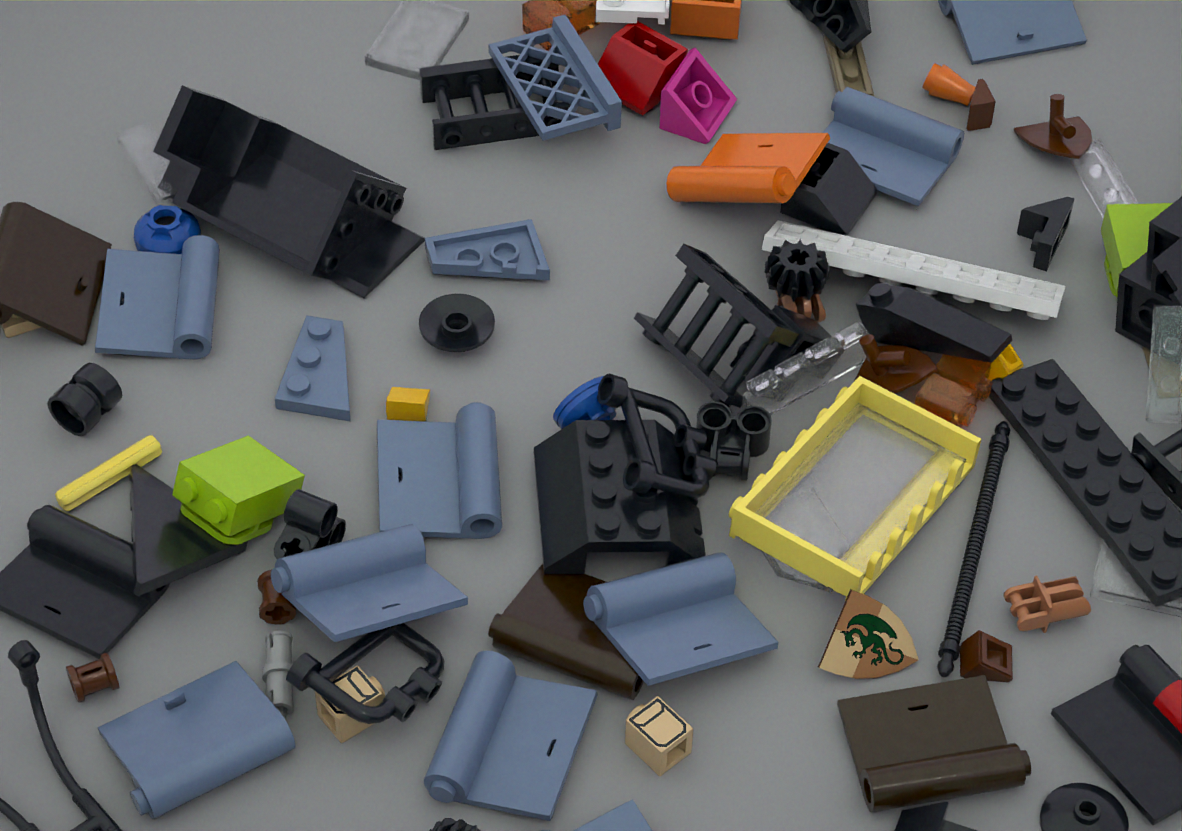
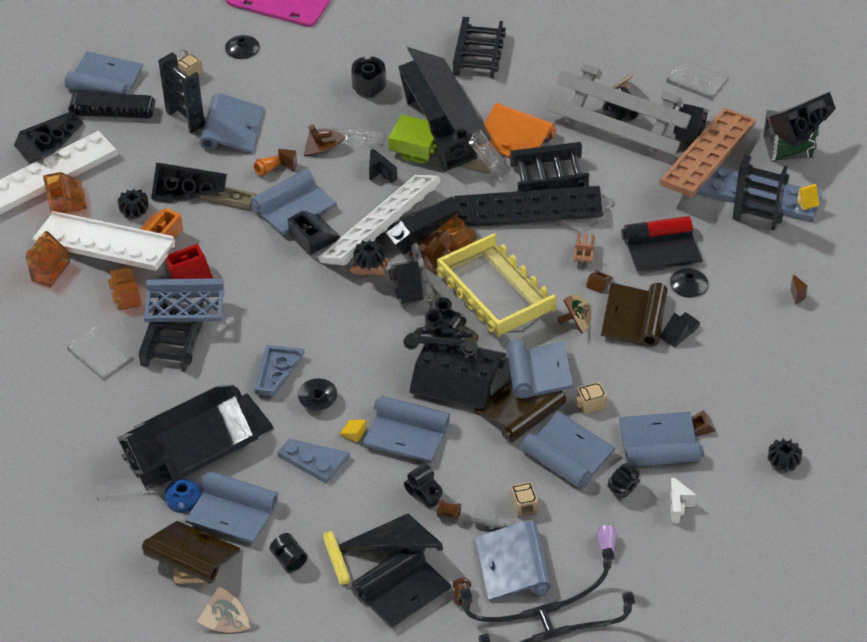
camera: 65 degrees left, 0 degrees up
(235, 489) = (385, 503): lime brick -> none
(365, 583) = (467, 471): sand blue door -> none
(398, 702) = (512, 500): black bar -> none
(583, 405) = (402, 360): blue piece -> none
(695, 100) = (221, 259): dark pink slope -> none
(745, 309) = (391, 277): black fence -> none
(748, 169) = (288, 250): orange door -> none
(950, 648) = (590, 290): black hose -> none

